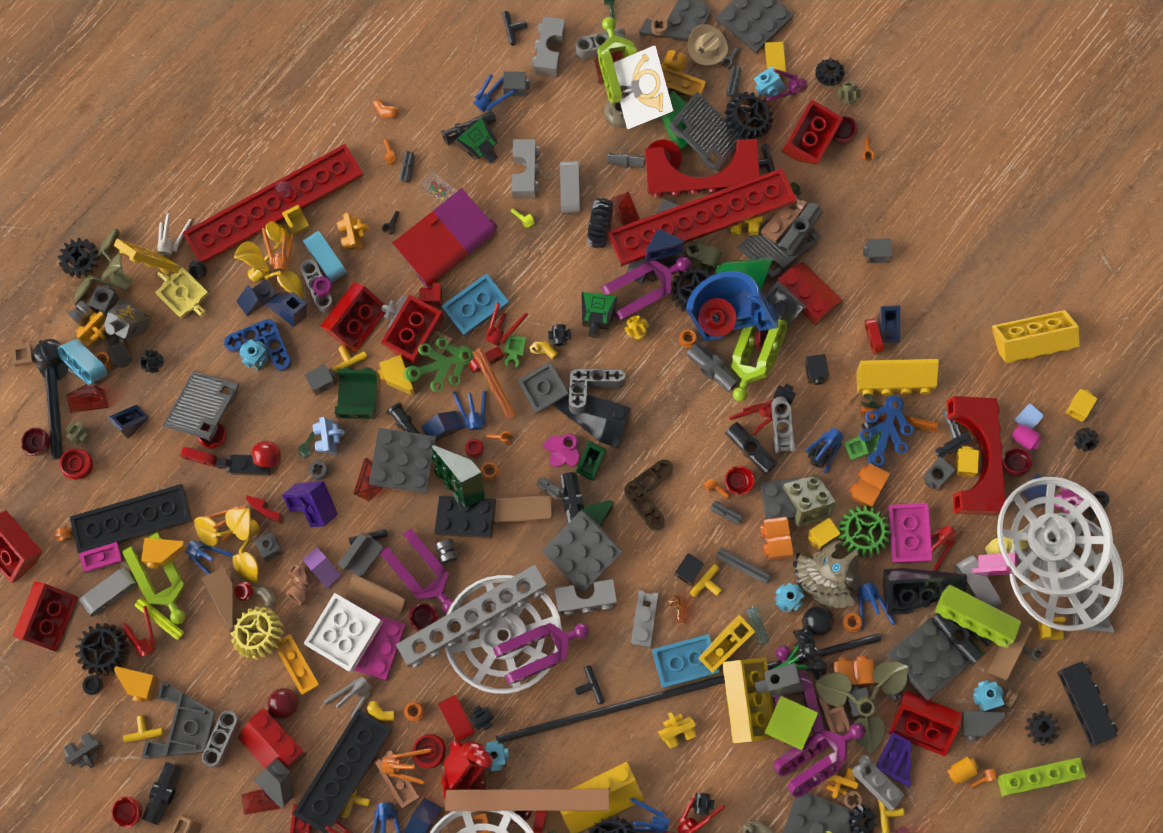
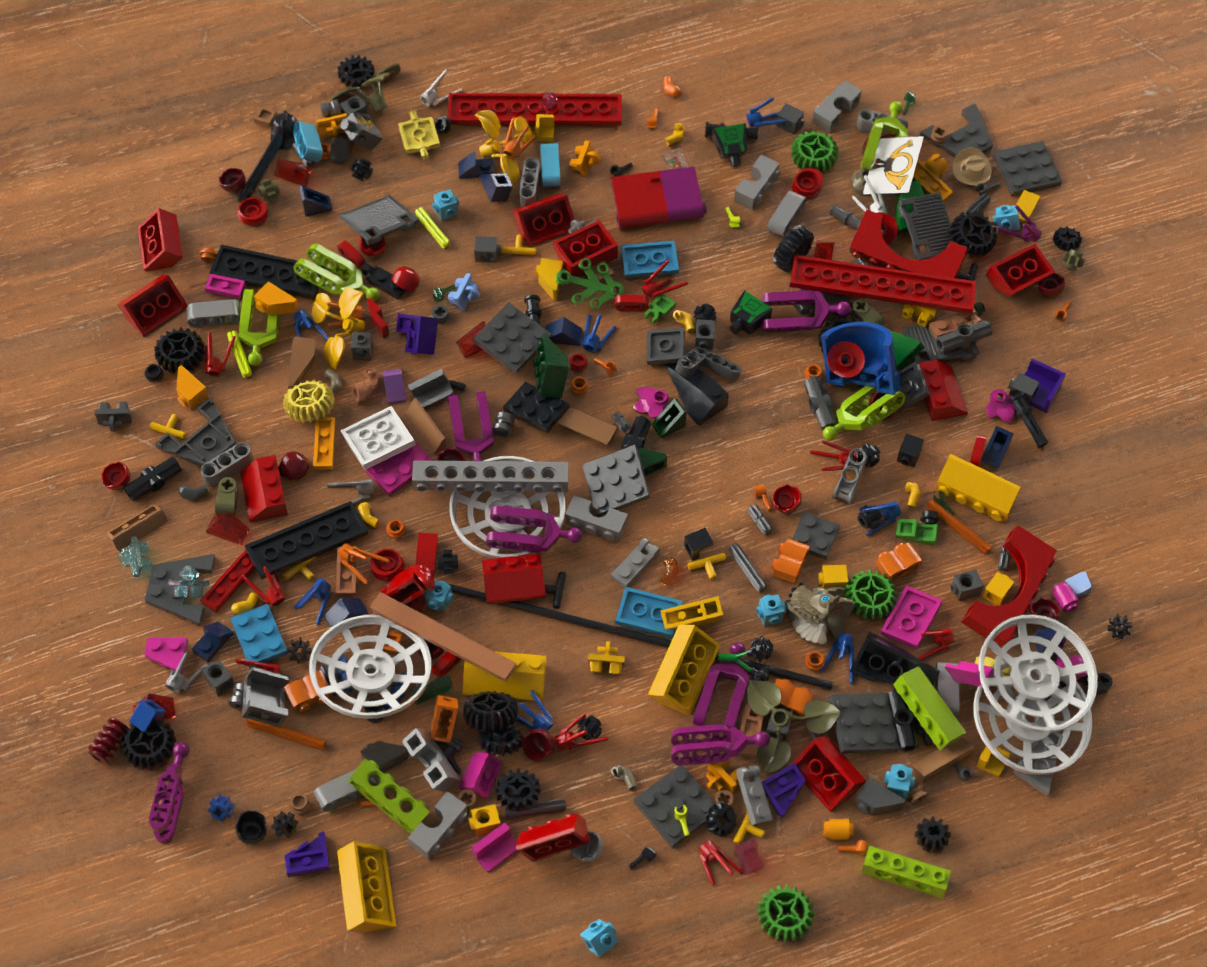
camera: 25 degrees right, 15 degrees down
(147, 256) = (407, 90): yellow plate -> none
(196, 475) = (304, 267): none -> lime piece
(206, 786) = (191, 493): none -> dark grey arm
(243, 591) = (319, 367): red plate -> none
(244, 775) = (226, 499): none -> olive piece
(255, 384) = (432, 227): none -> neon yellow axle
(267, 337) = (464, 200): blue beam -> none
(276, 783) = (248, 516): dark grey slope -> none
(322, 286) = (533, 181): magenta tile -> none
(356, 393) = (509, 274): dark green panel -> none
(408, 160) = (658, 138): dark grey piece -> none
(422, 158) = (677, 136): none -> yellow arm
(431, 296) = (621, 235): red panel -> none
(493, 382) = (626, 321): orange axle -> none
(510, 28) = (815, 80): black piece -> none
(544, 113) = (825, 154): none -> bright green gear
(551, 701) = (513, 578): none -> red slope
(567, 348) = (707, 328): none -> dark grey brick
(570, 144) = (808, 183): none -> red piece
(636, 327) = (774, 341): yellow gear -> none
(643, 488) = (699, 465): dark brown beam -> none
(648, 135) = (876, 207): none -> white plant
(663, 245) = (833, 283): dark blue slope -> none
(757, 625) = (729, 620): clear light blue axle -> none
(760, 456) = (811, 472): black piece -> none
(788, 678) = (721, 662): dark grey torso -> none
(791, 723) = (707, 701): lime tile -> none
(810, 499) = (838, 544): olive bracket -> none
(818, 620) = (786, 643): black hair -> none
(843, 408) = (914, 495): none -> yellow arm
(871, 279) = (1000, 407): none -> dark pink plate
(887, 428) = (942, 524): blue plant -> none
(892, 273) = (1025, 412): none -> black pin
(898, 231) = (1049, 381): none -> dark purple panel
(953, 445) = (992, 569): black axle -> none
(1036, 336) = (1124, 524): yellow slope -> none
(1081, 405) = (1132, 598): yellow brick -> none
(1087, 703) = (987, 837): black brick -> none

